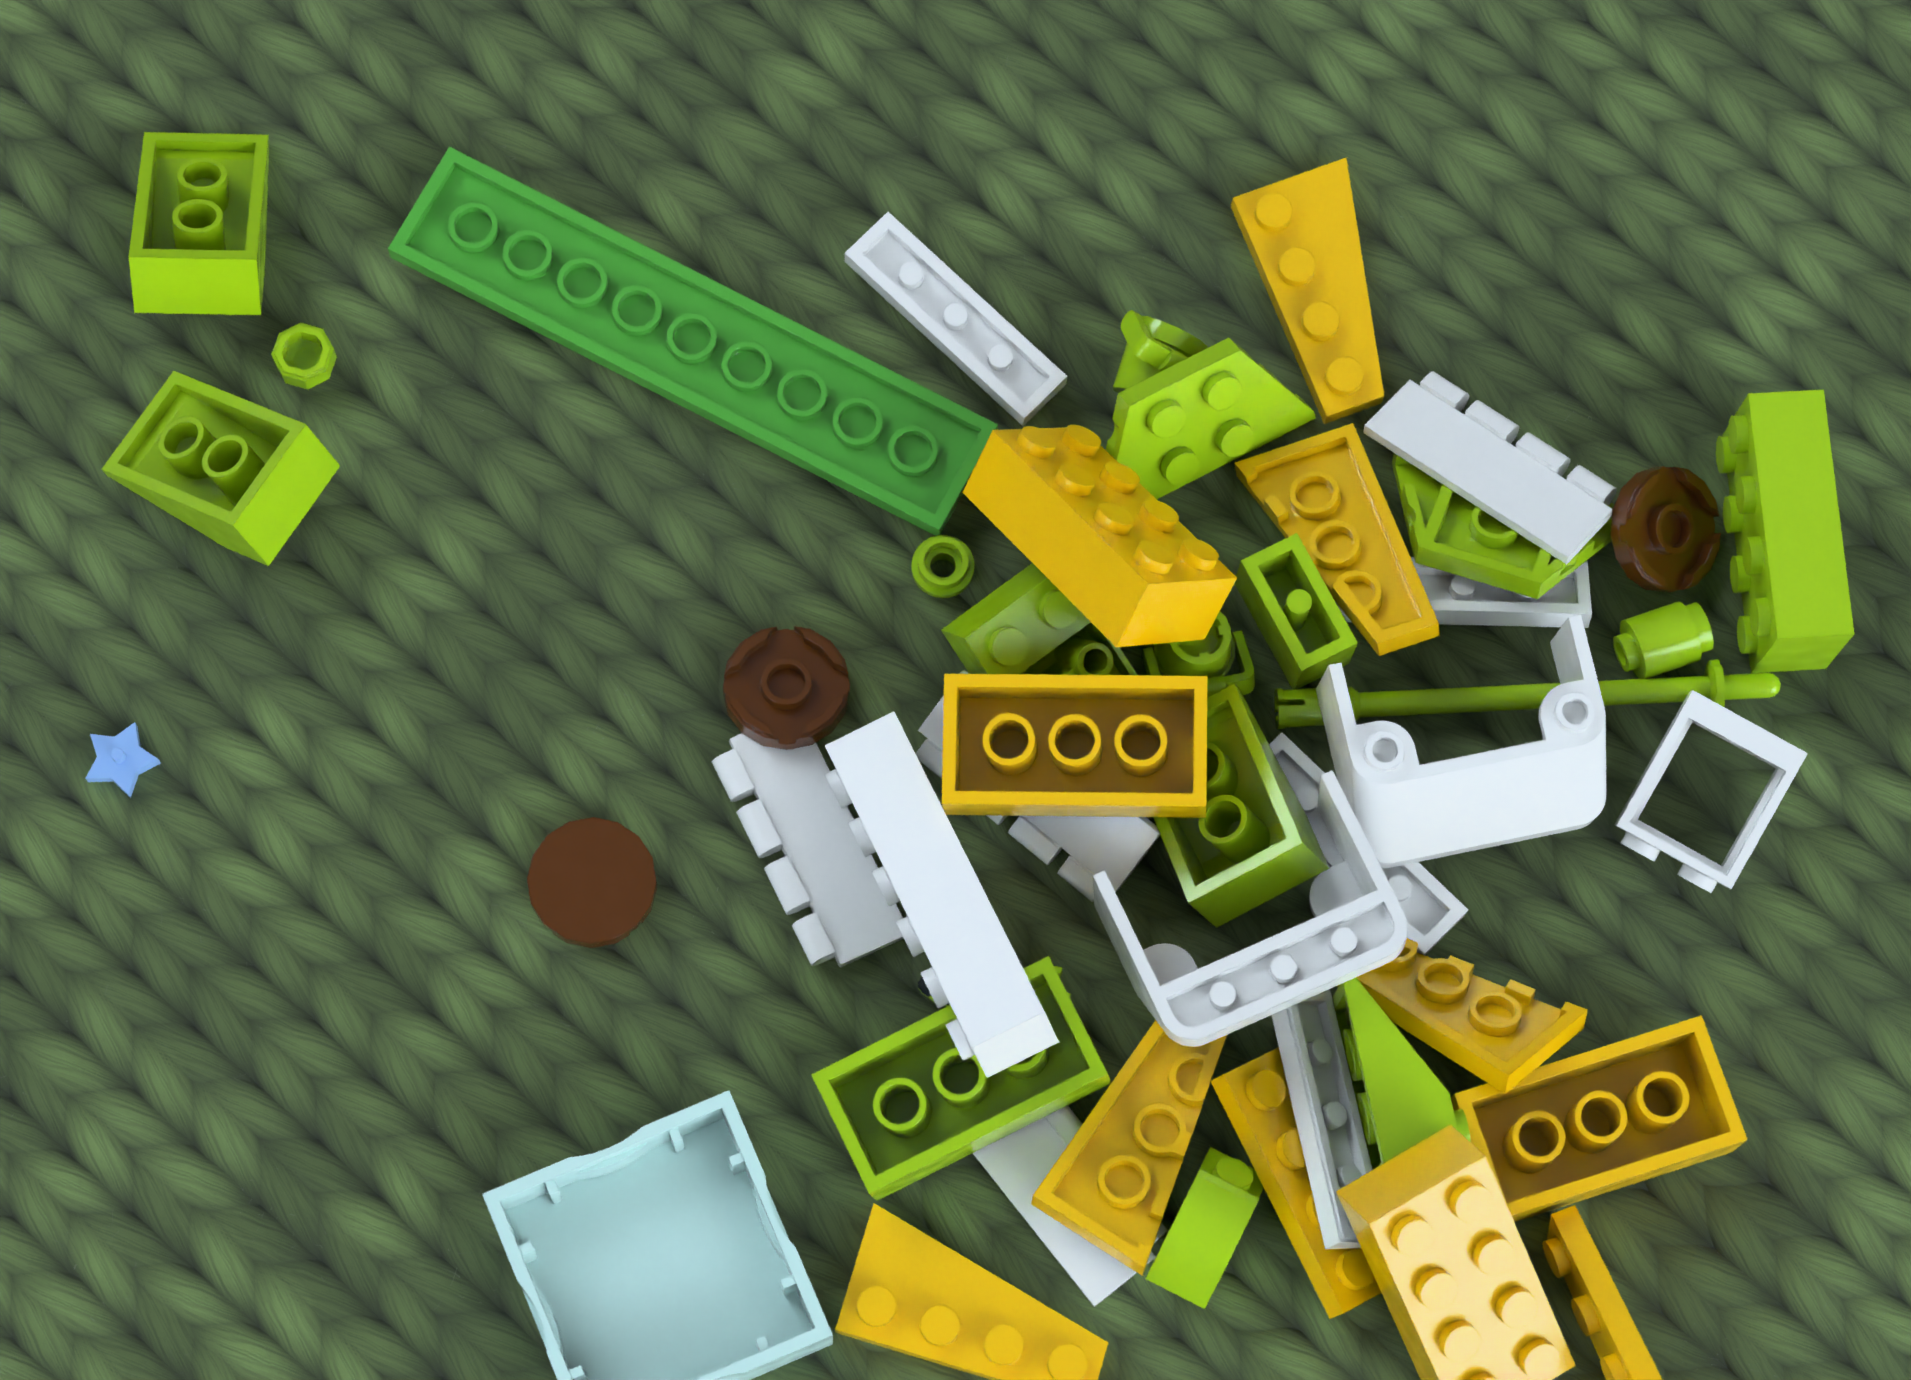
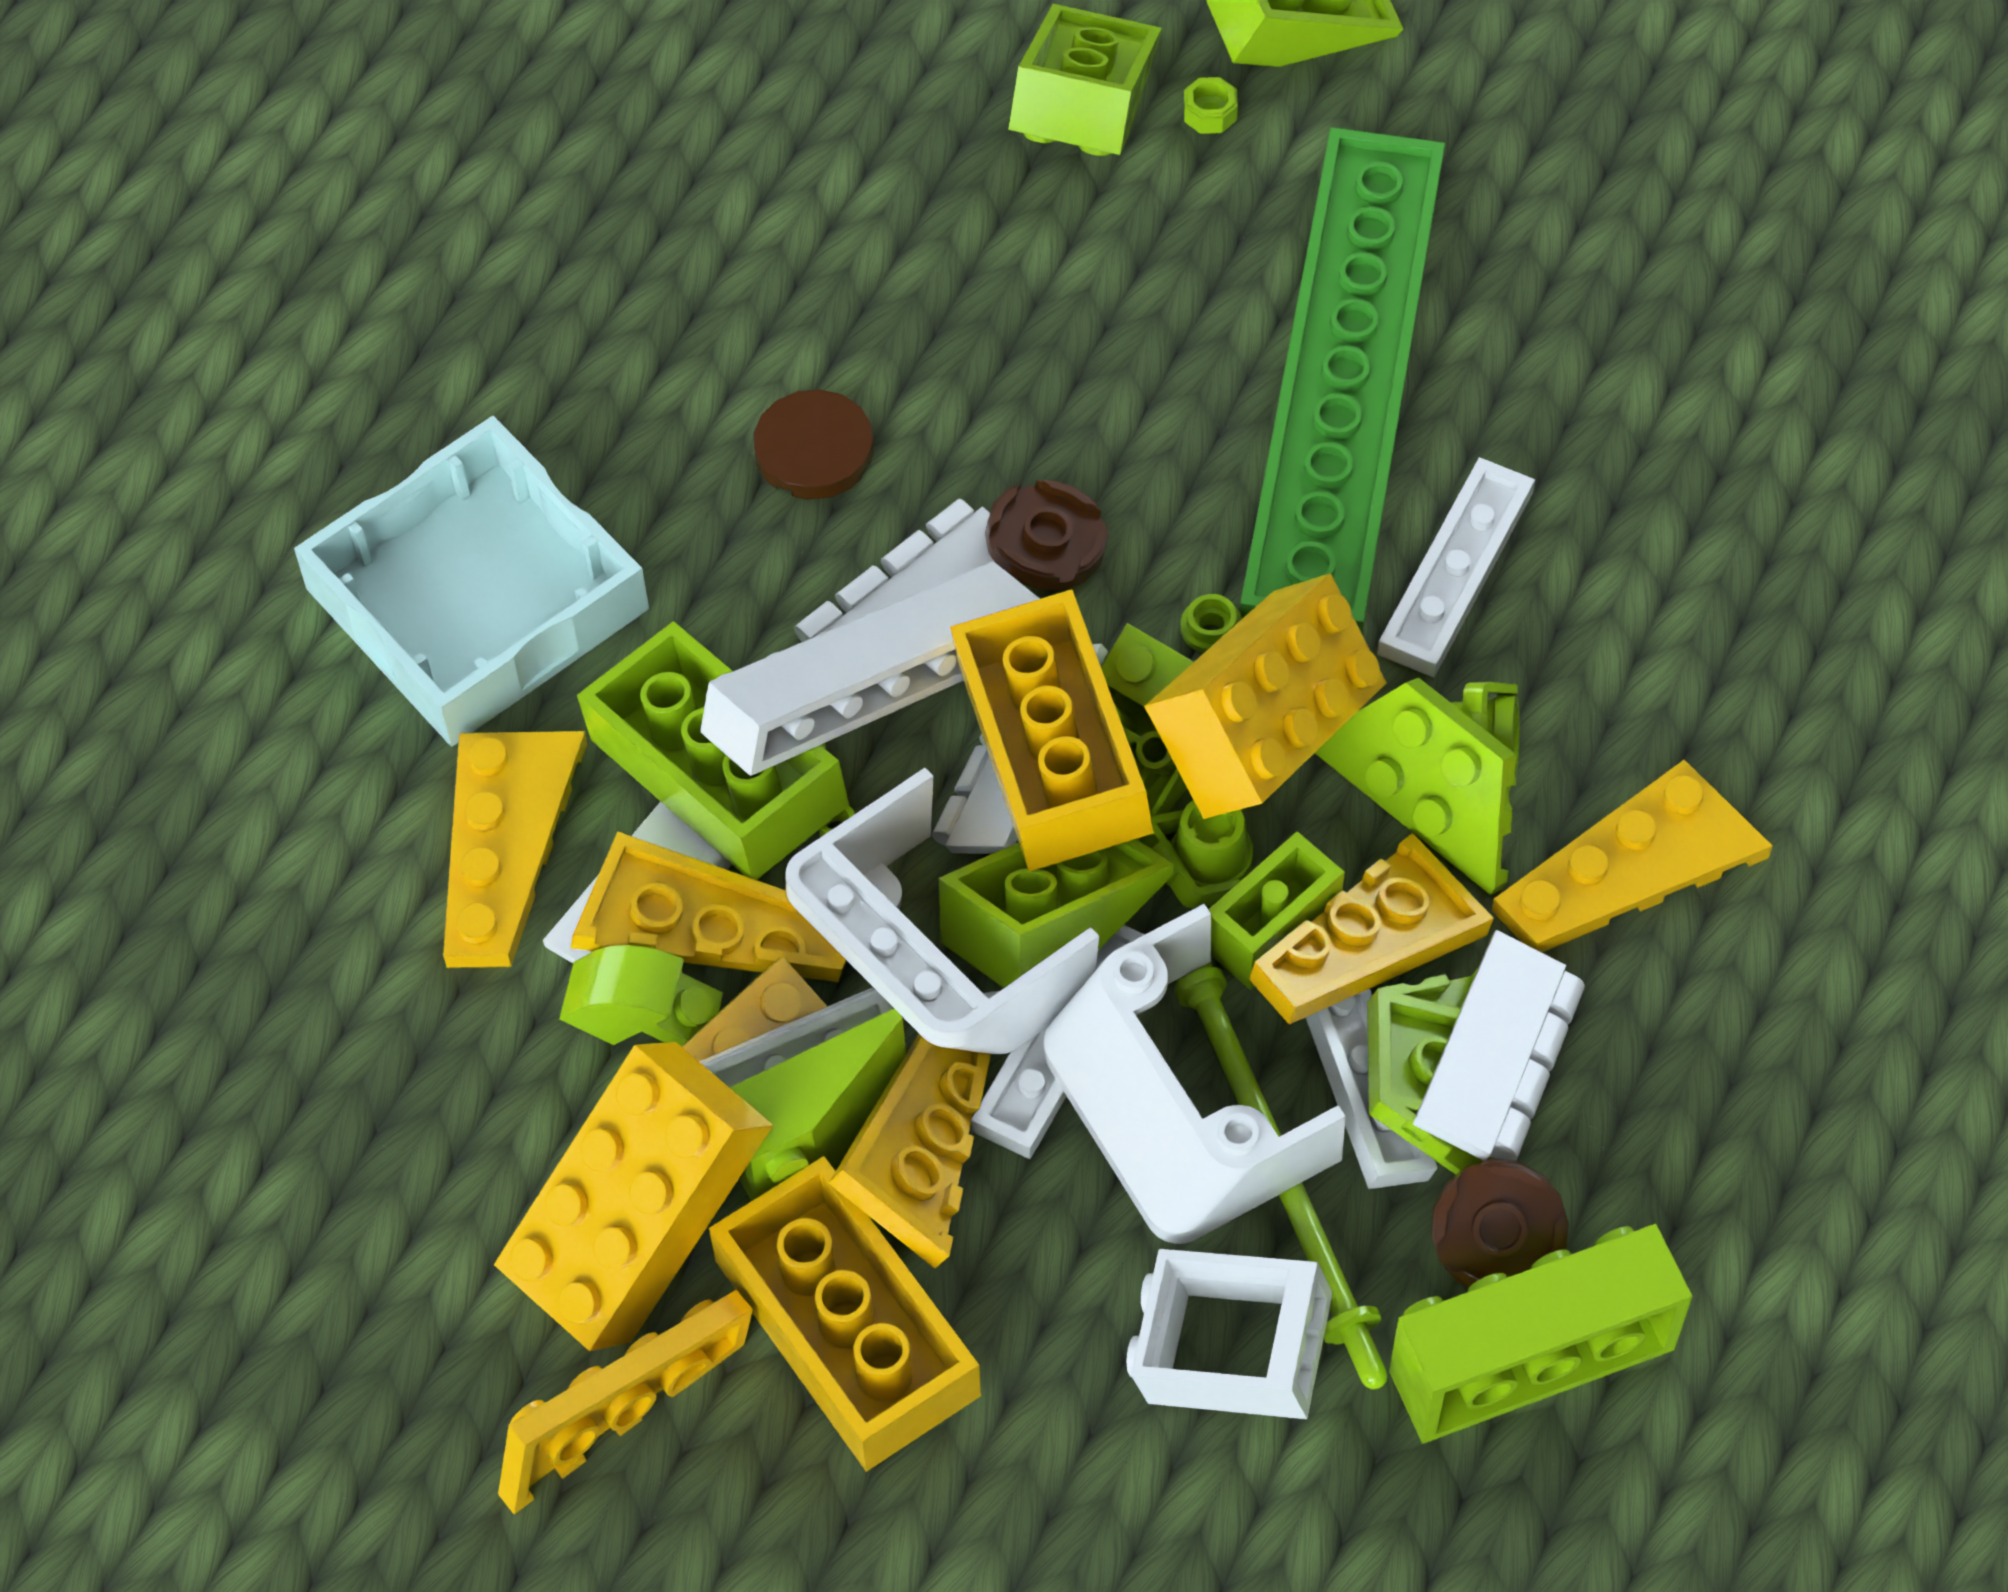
camera: 80 degrees right, 15 degrees down
(120, 759) = (807, 93): light blue piece -> none
(1663, 639) = (1382, 1260): lime brick -> none

